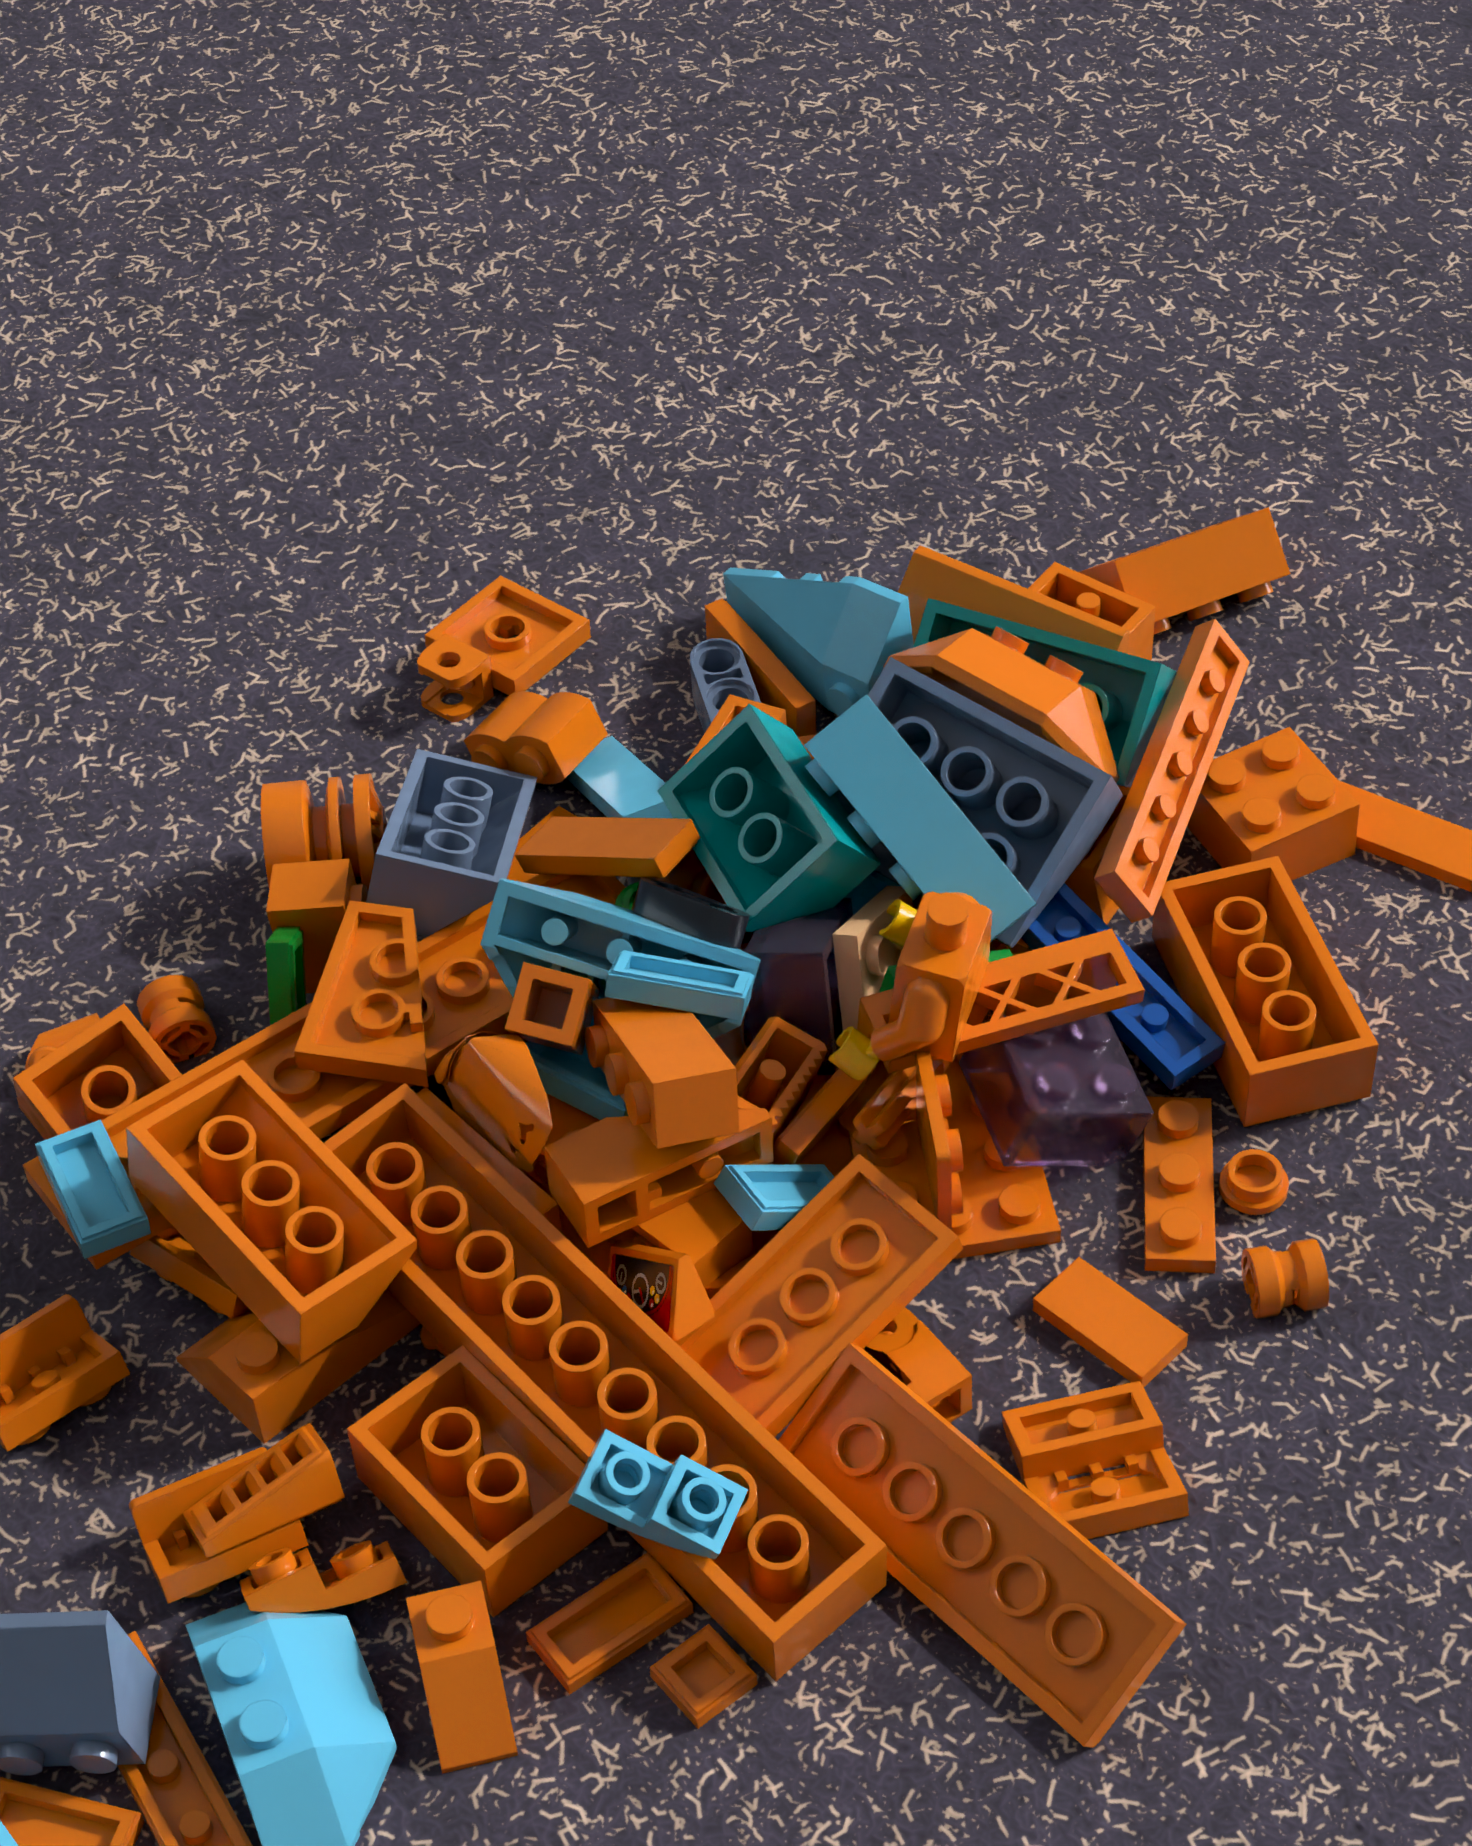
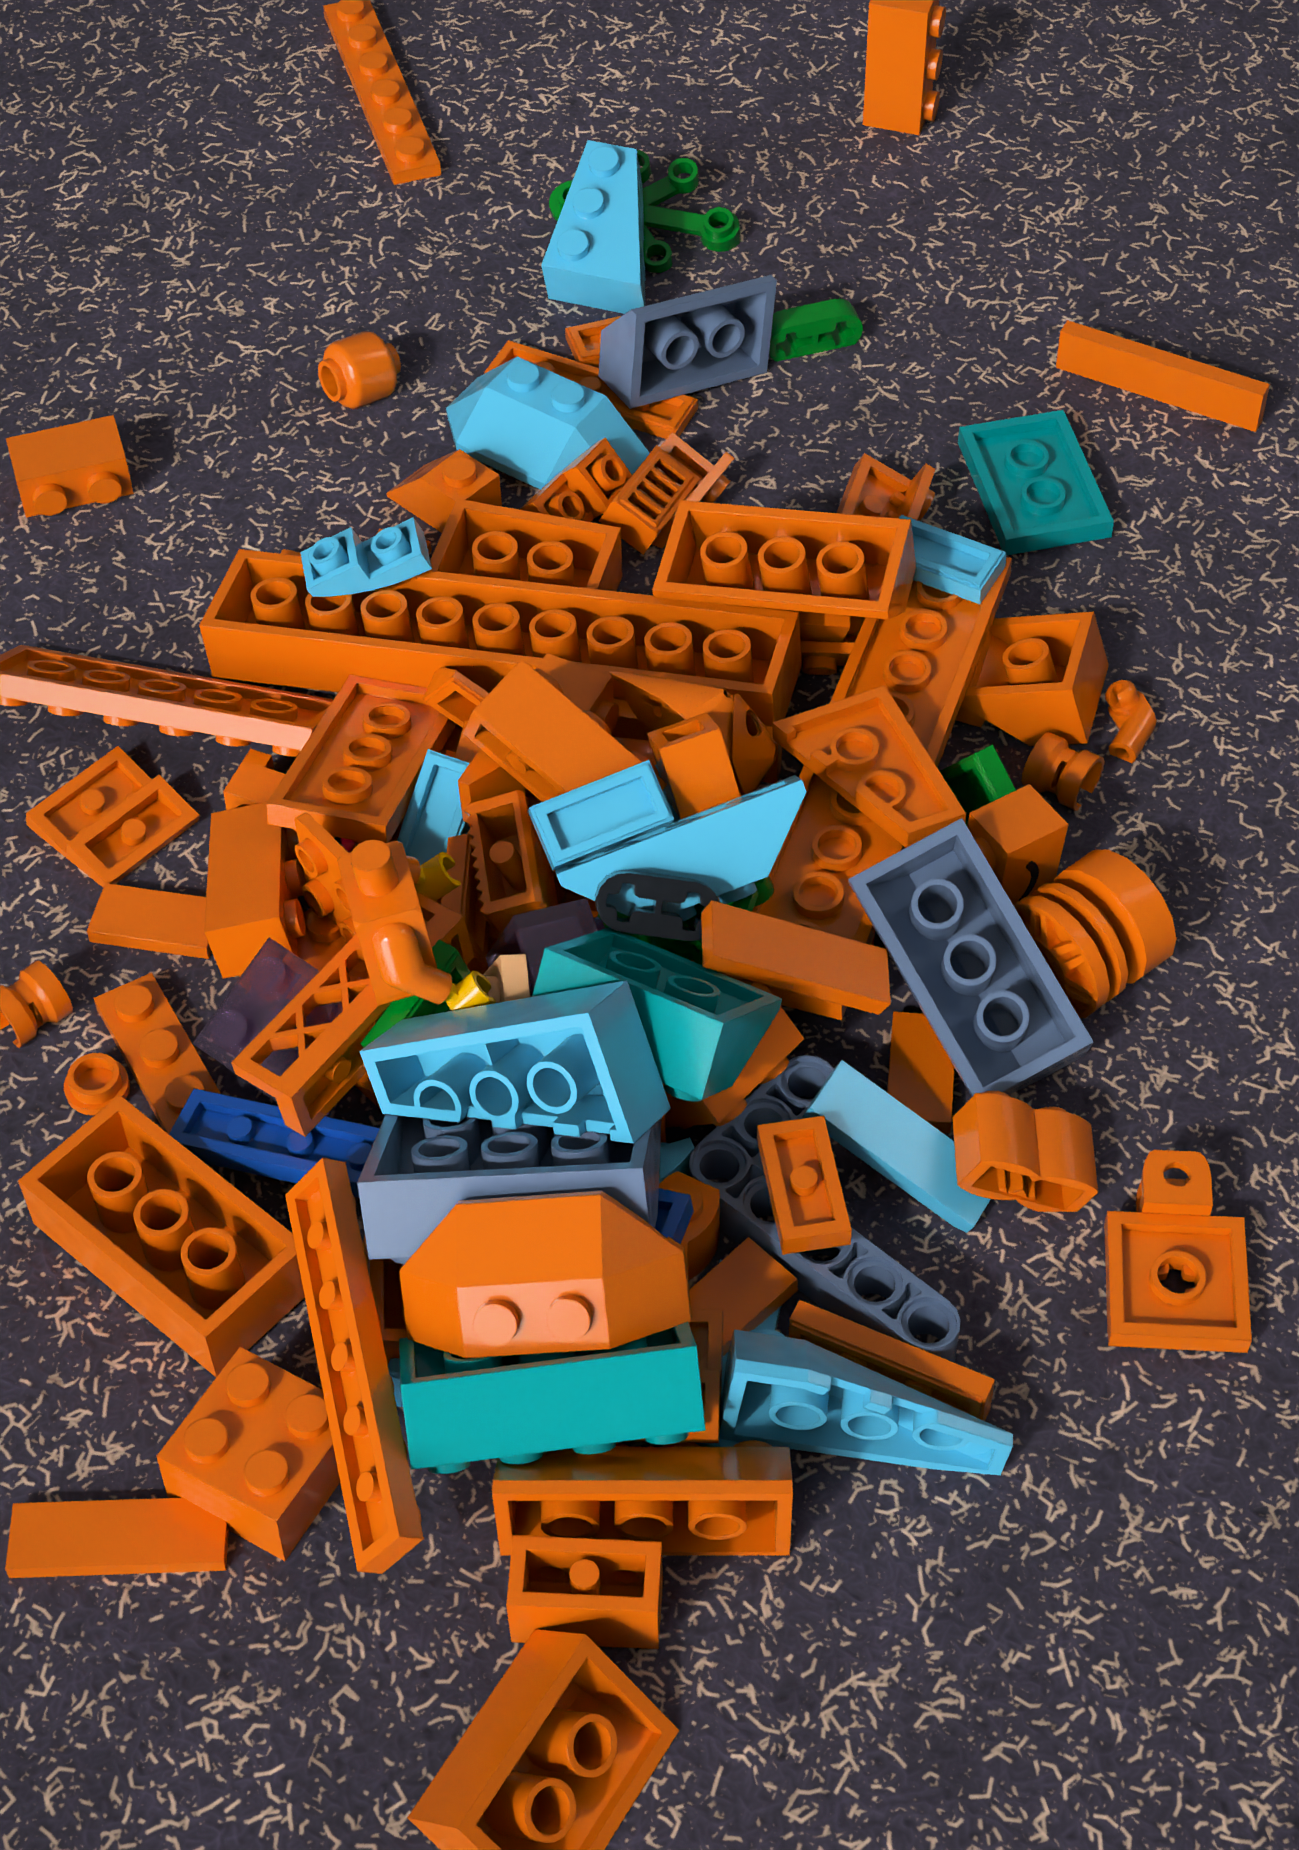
camera: 145 degrees right, 5 degrees up
(1005, 1251) = (251, 887): none -> orange brick

